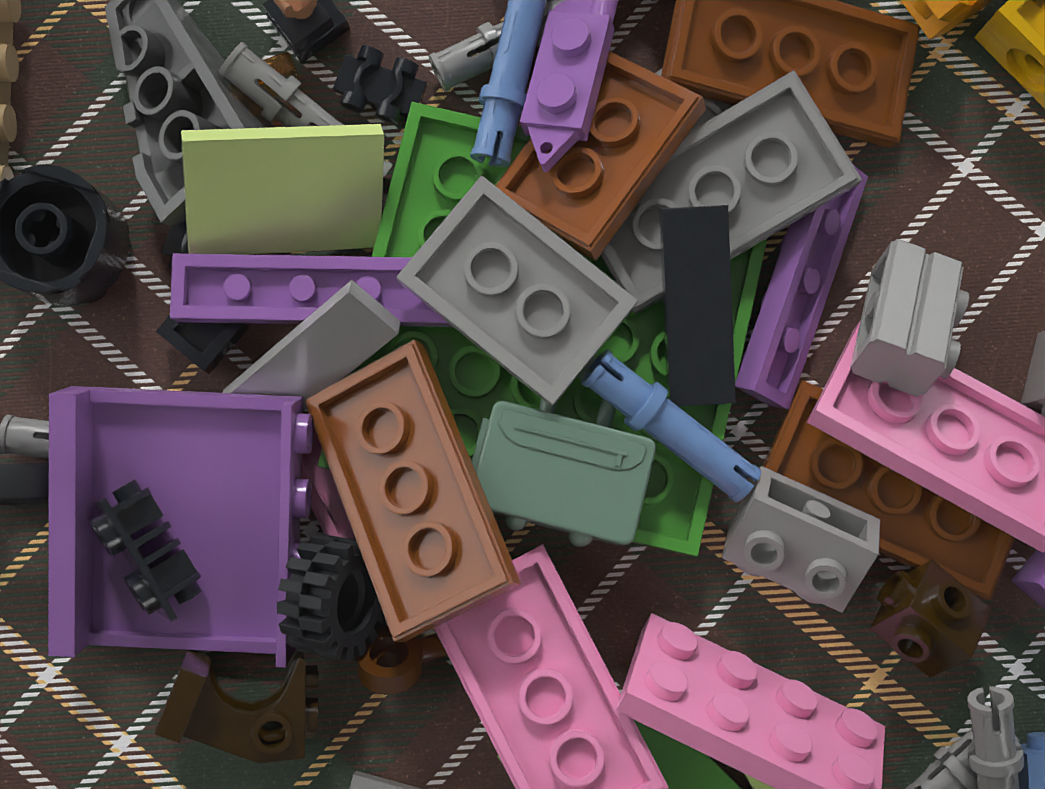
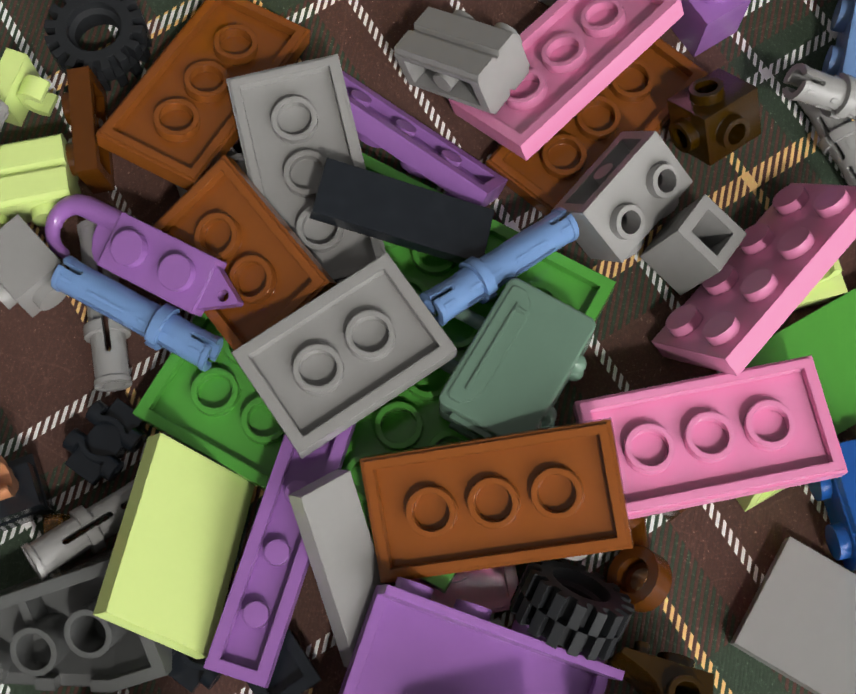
camera: 80 degrees left, 10 degrees down
(766, 631) = (693, 245): none -> light grey brick

